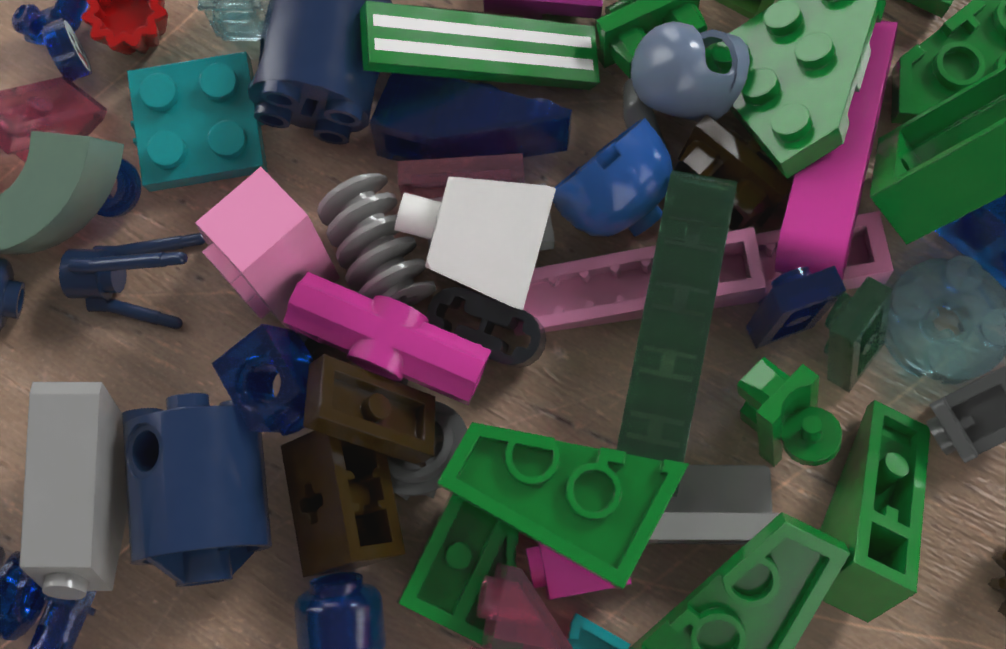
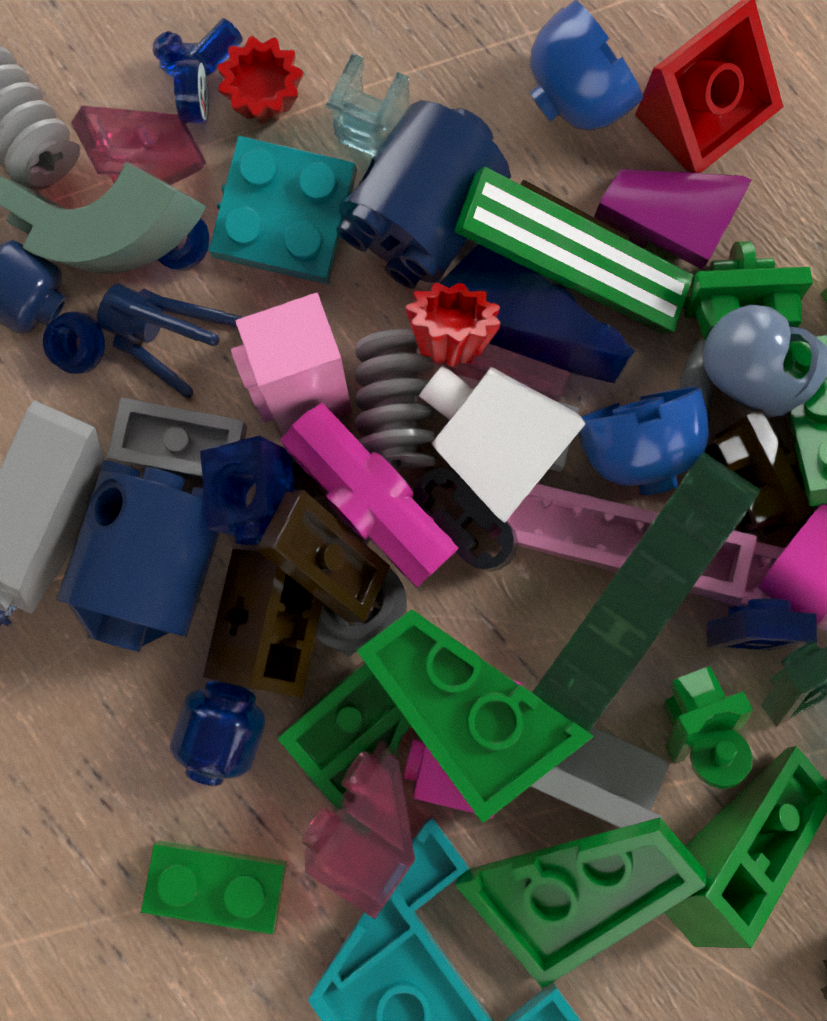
camera: 20 degrees right, 5 degrees up
(35, 326) = (61, 346): none -> clear blue plate
(174, 368) = (168, 437): none -> light grey plate
(397, 152) = (452, 323): none -> red piece

